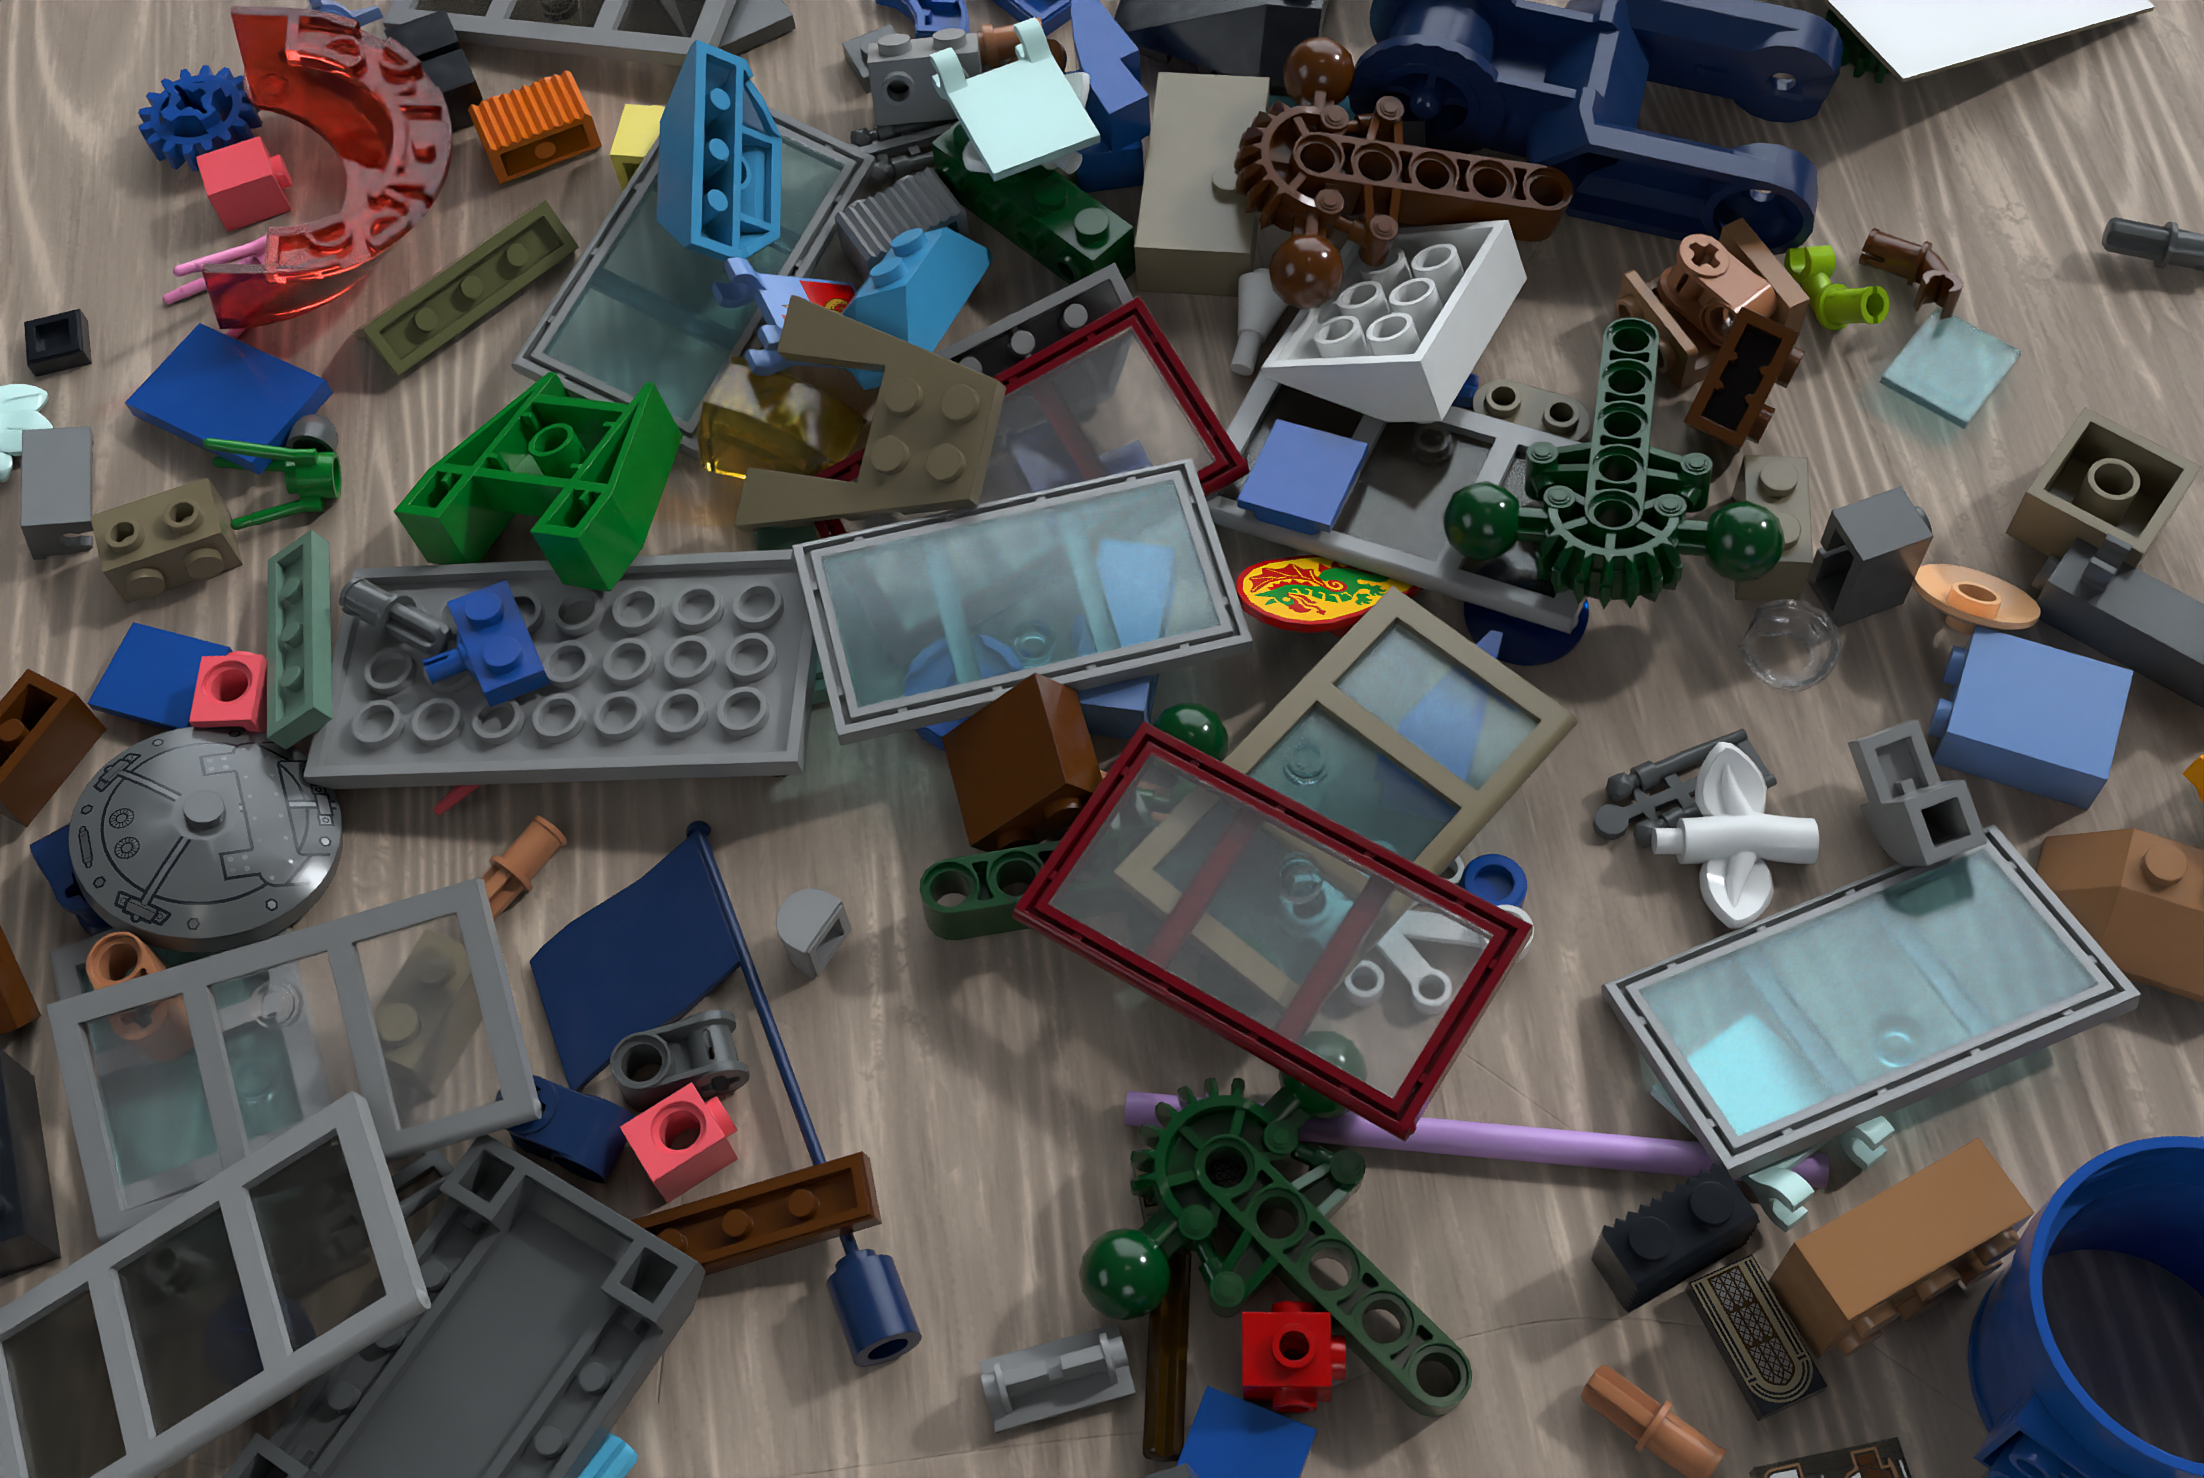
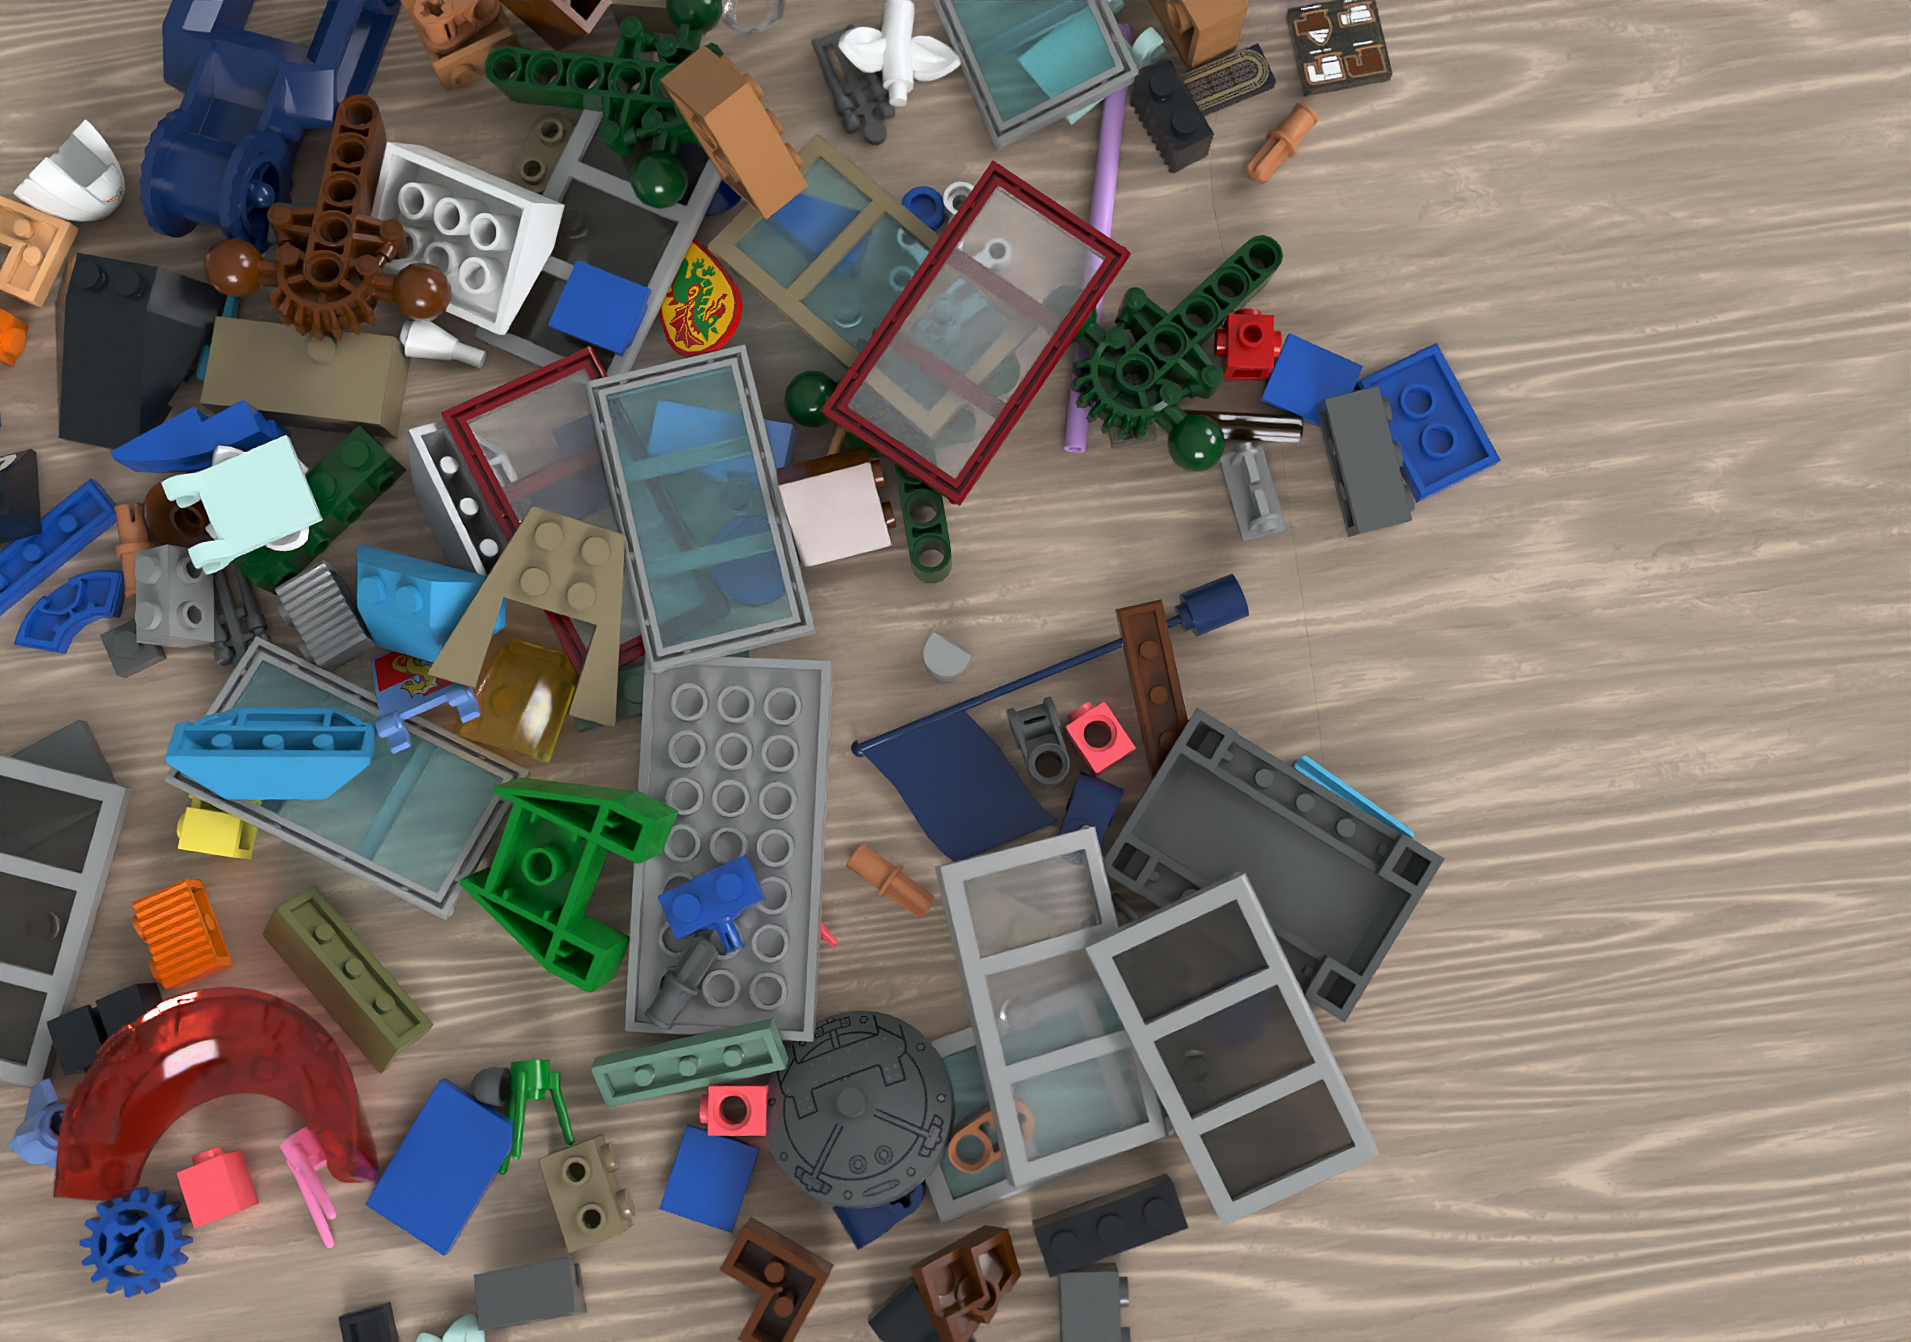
camera: 90 degrees left, 20 degrees up
(1535, 578) = (736, 130): none -> medium nougat brick

